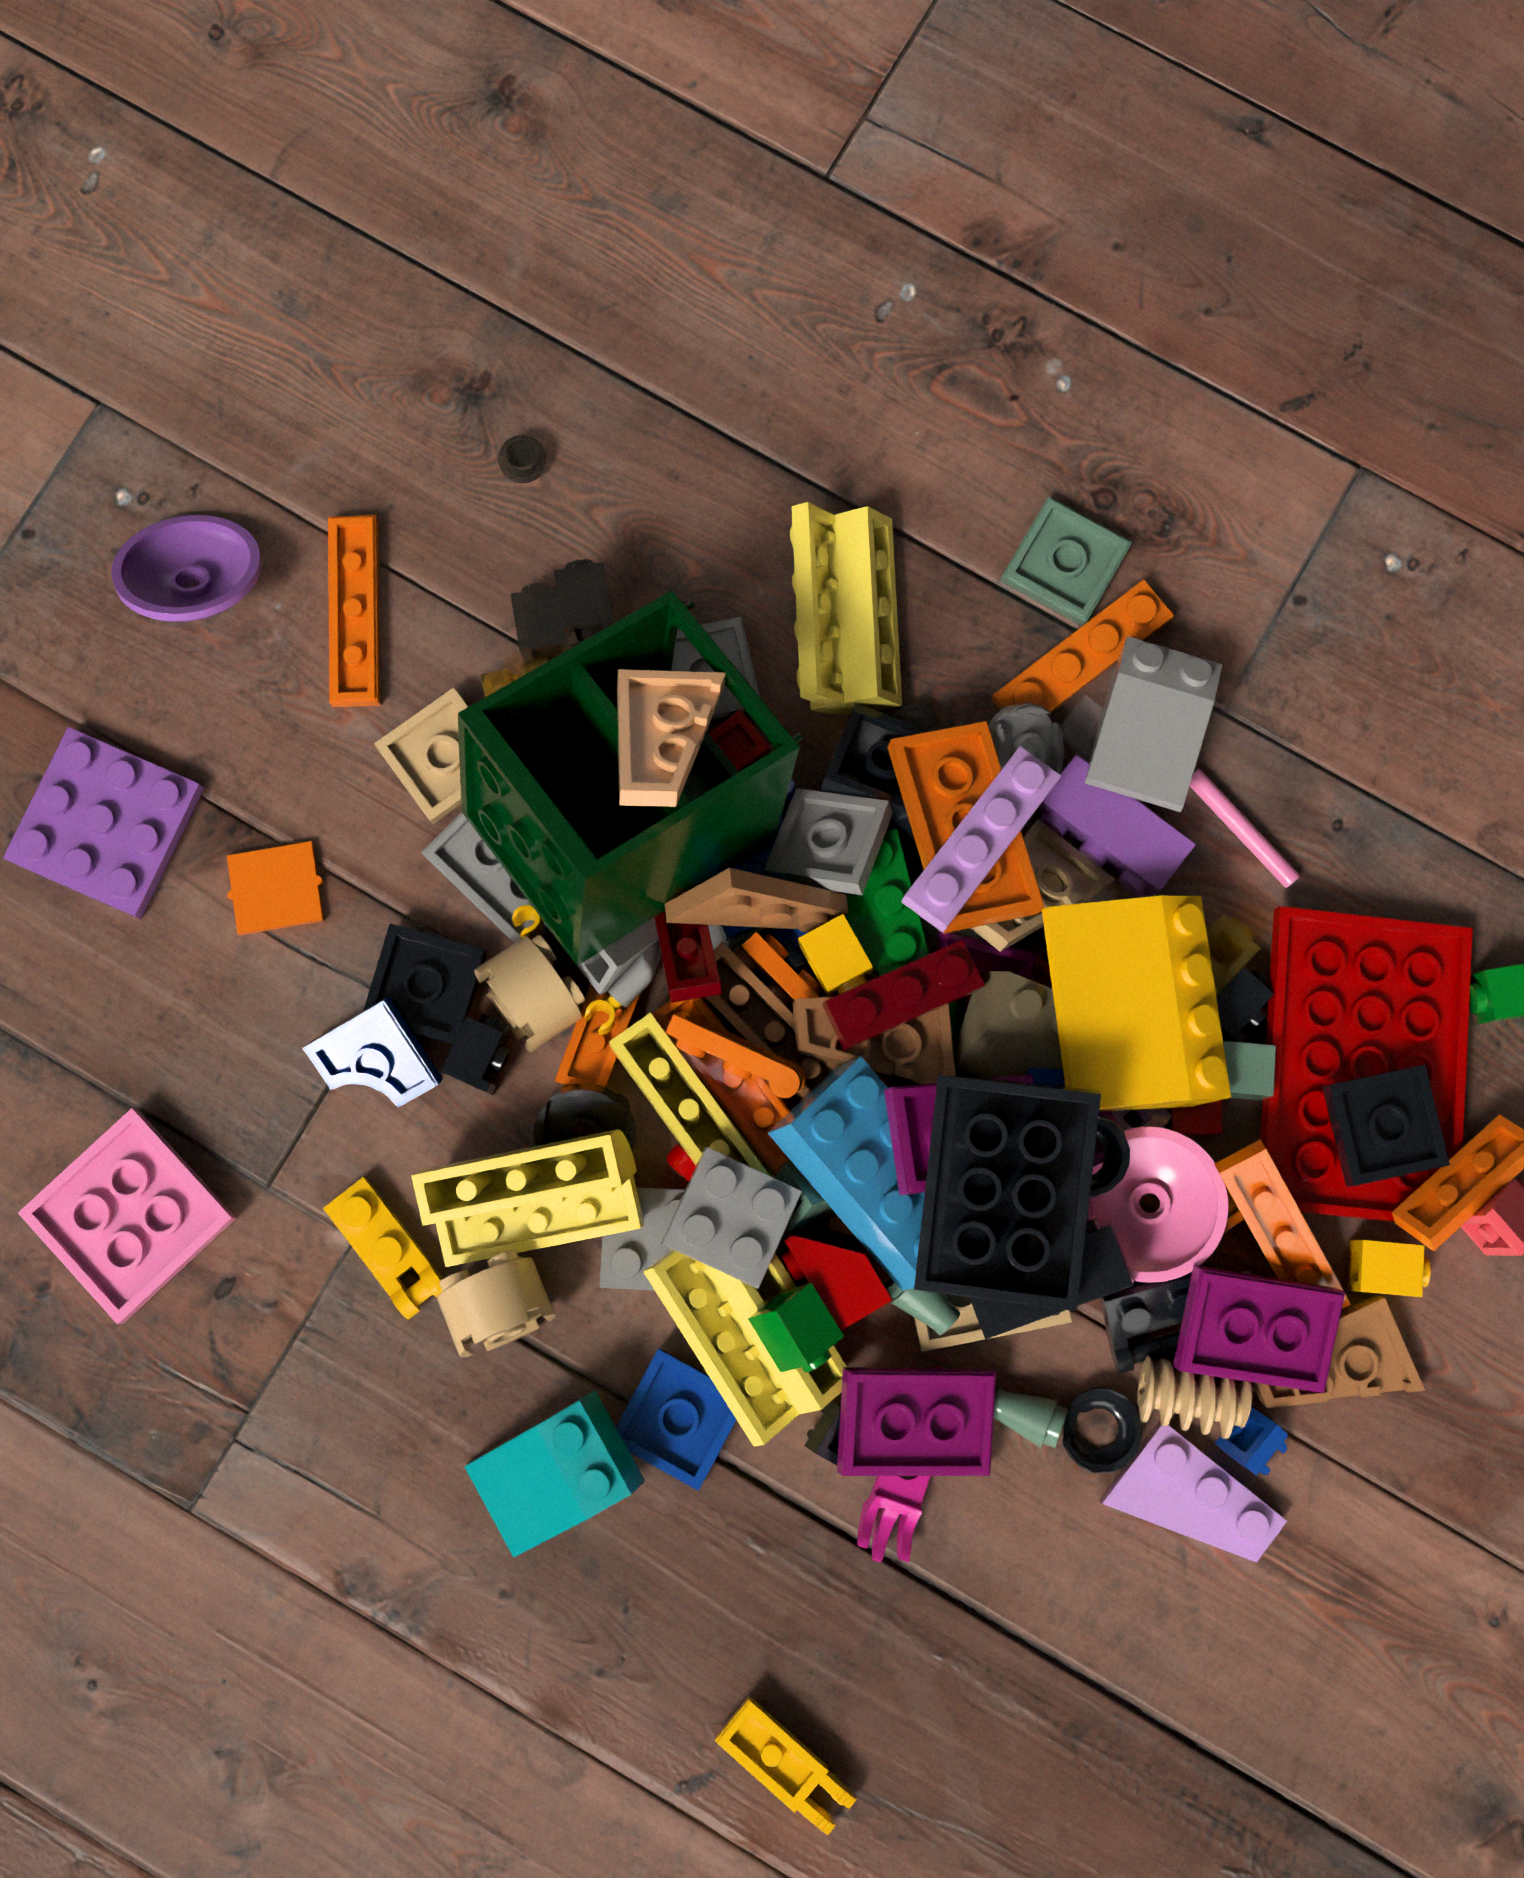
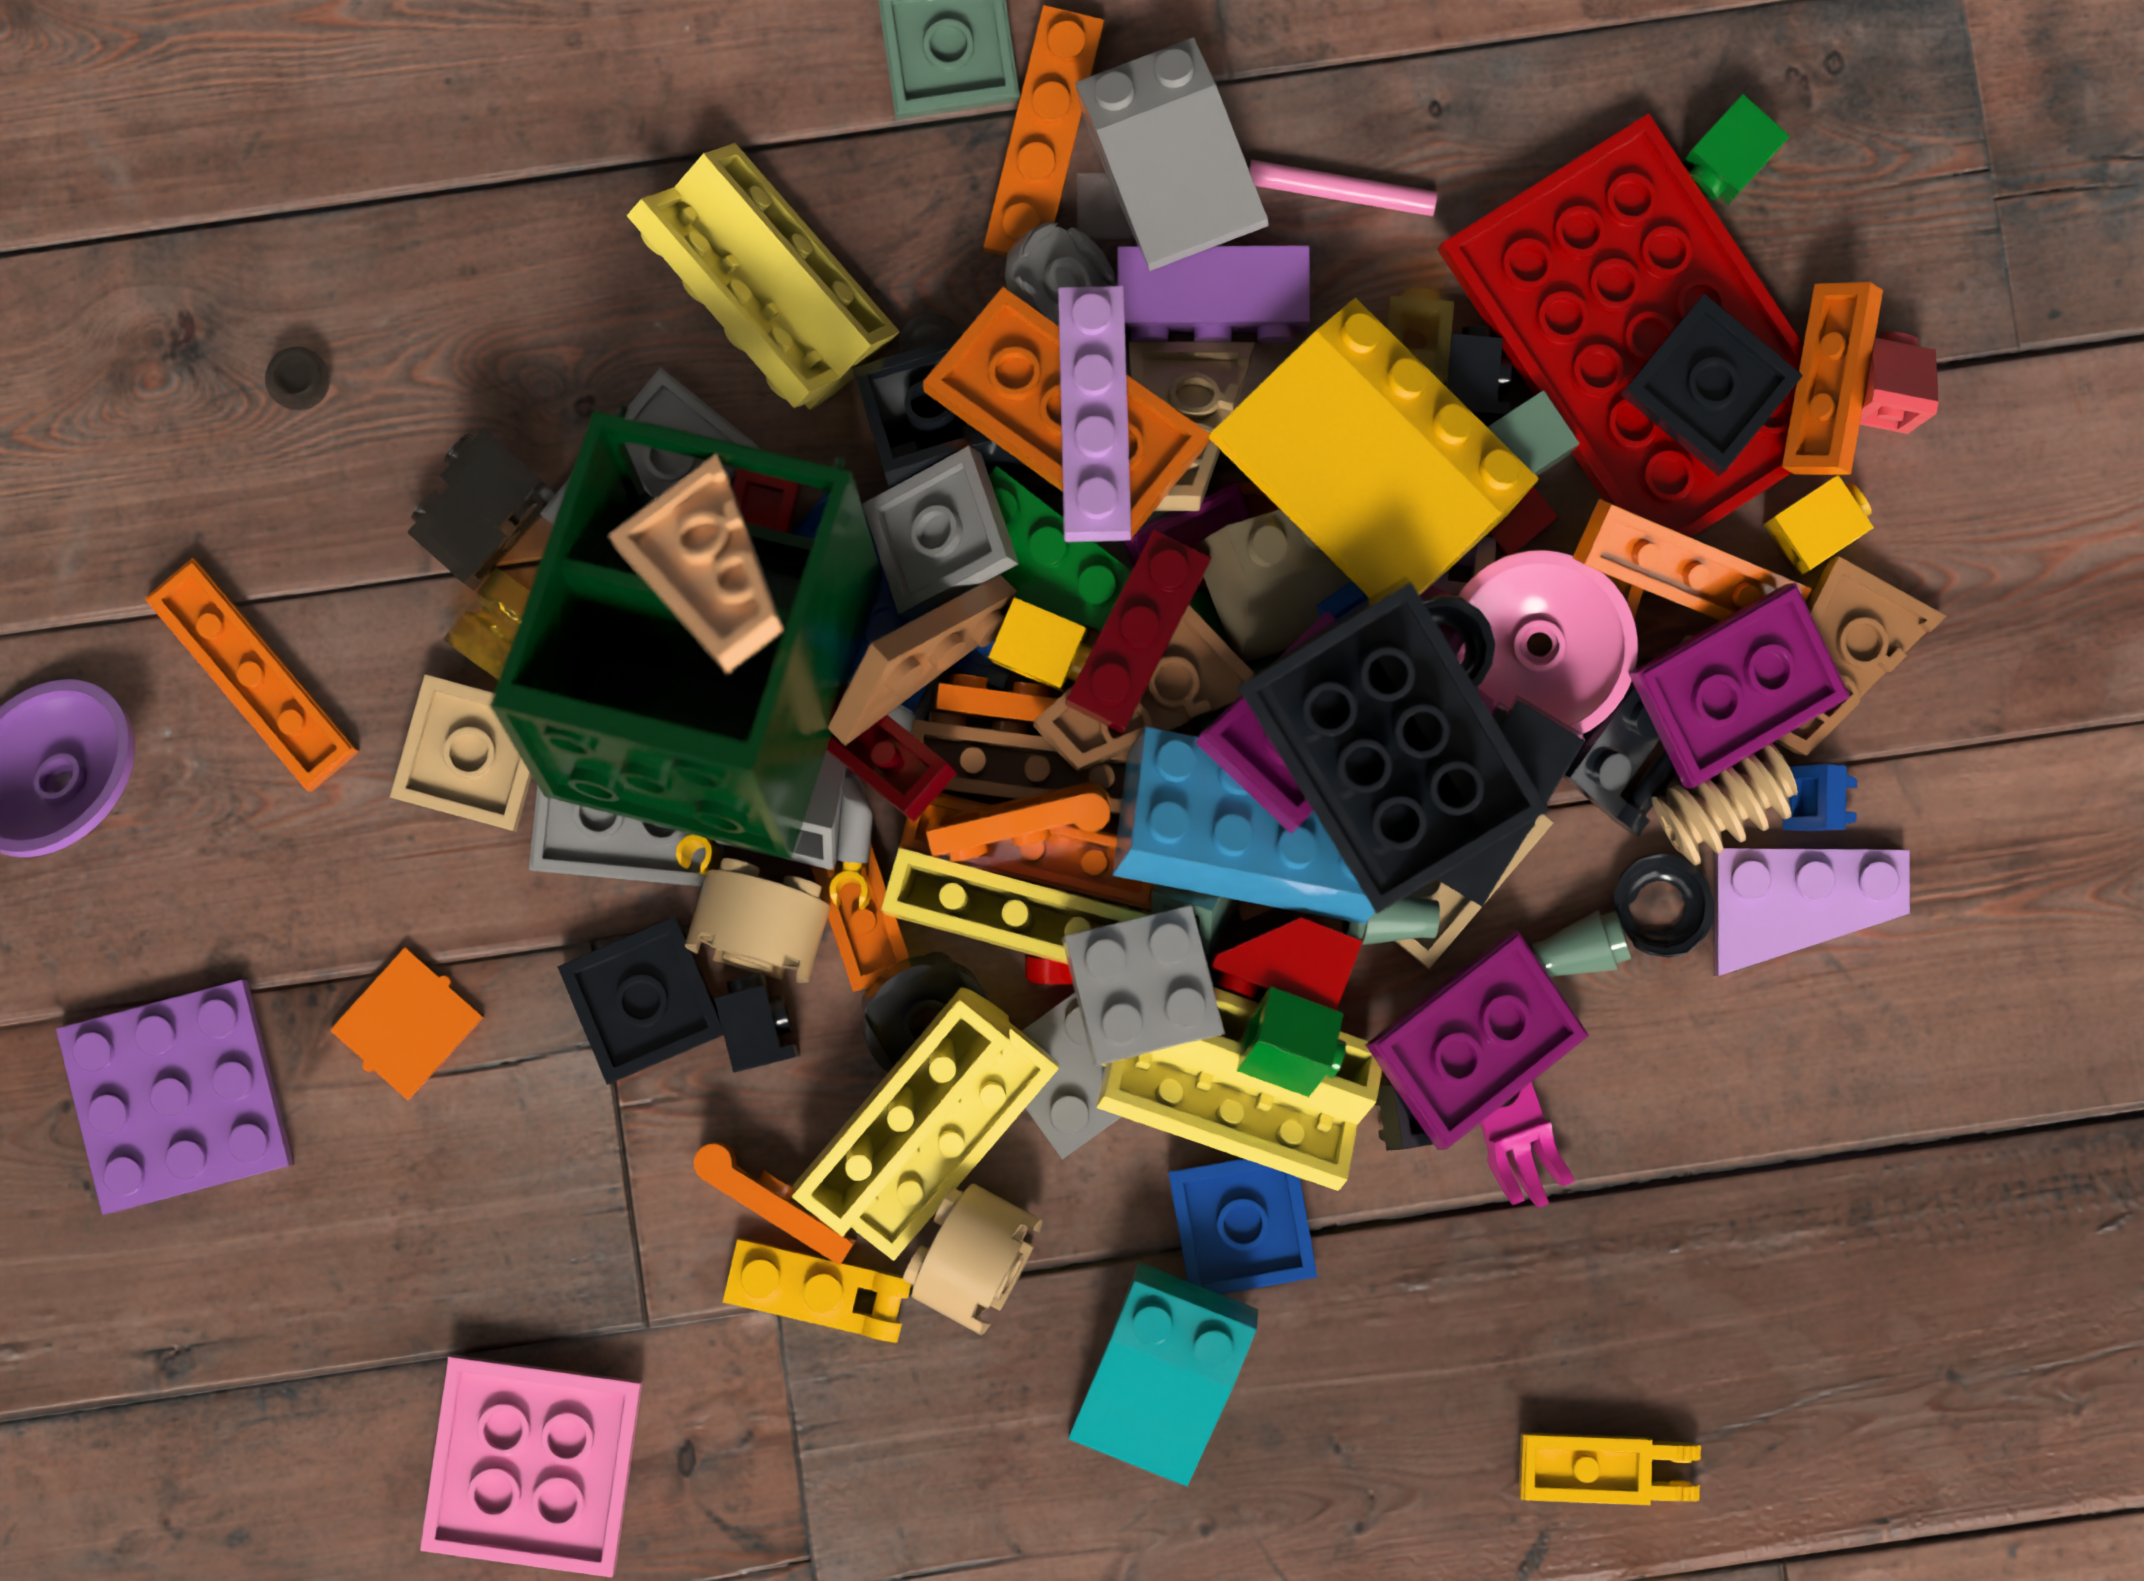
camera: 40 degrees left, 5 degrees up
(376, 1052) = (649, 1105): tile -> none
(399, 1164) = (770, 1199): none -> orange plate

